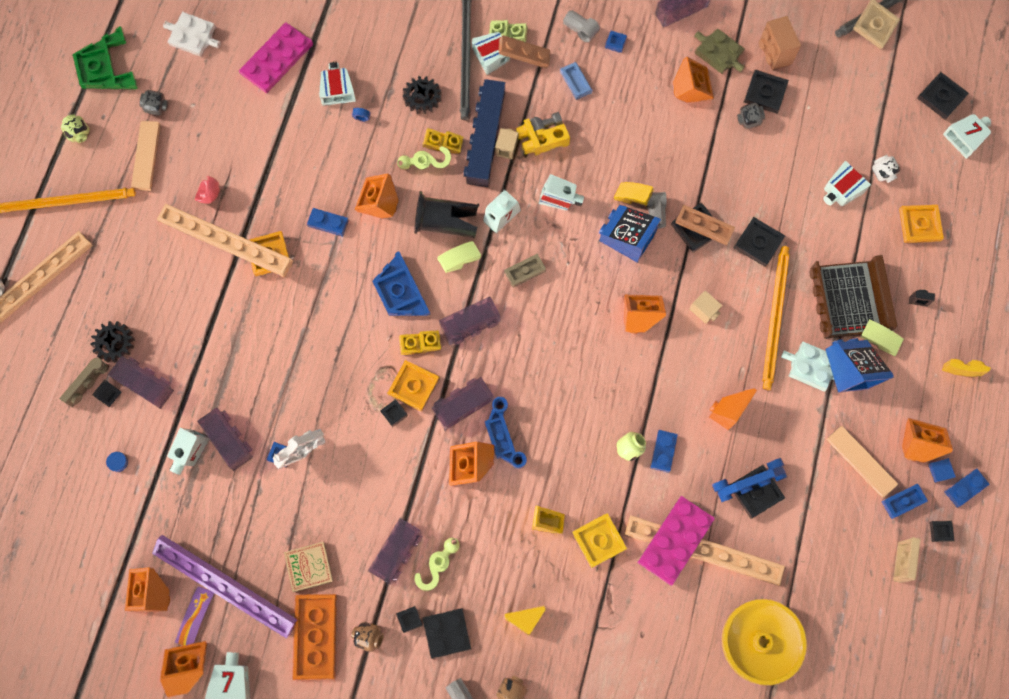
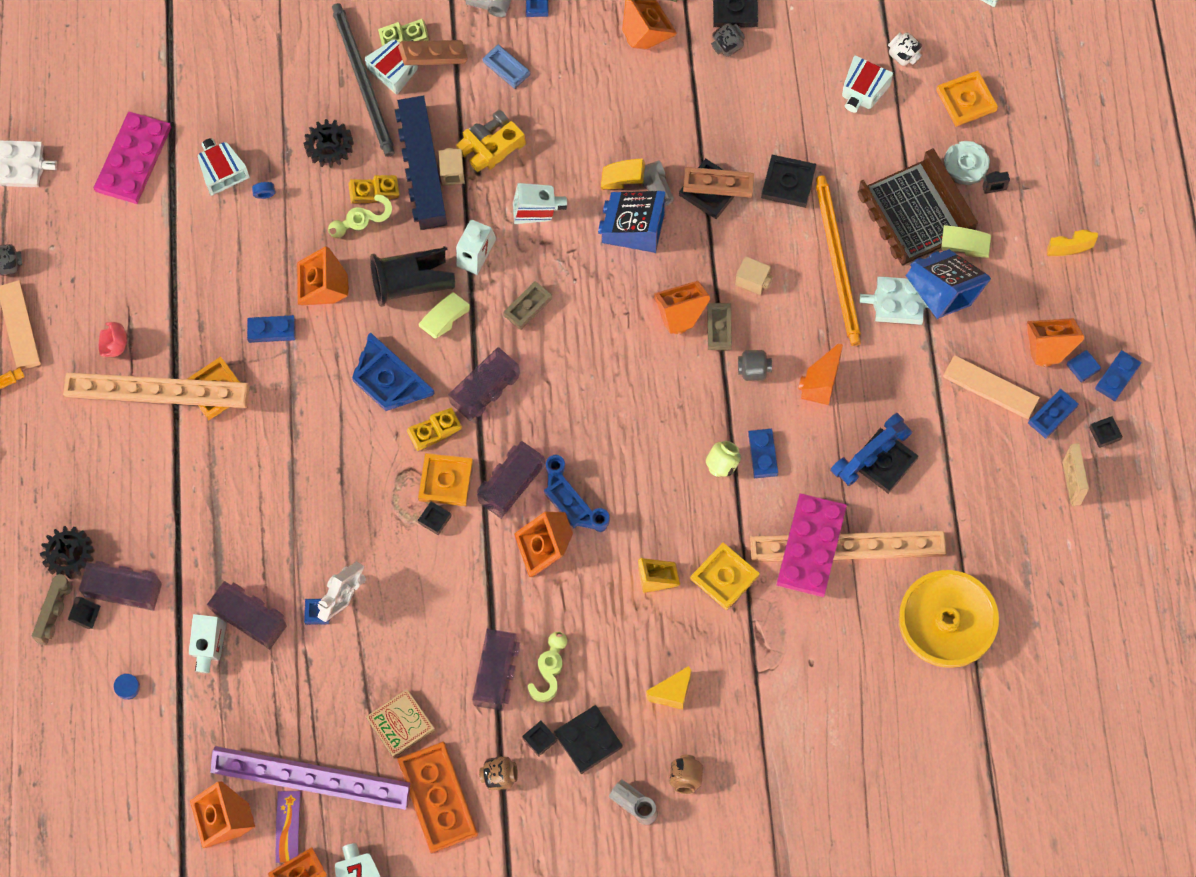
camera: 15 degrees left, 5 degrees down
(665, 338) = (719, 326): none -> dark tan plate
(681, 379) = (754, 365): none -> dark grey head
(903, 274) = (966, 162): none -> light aqua tile

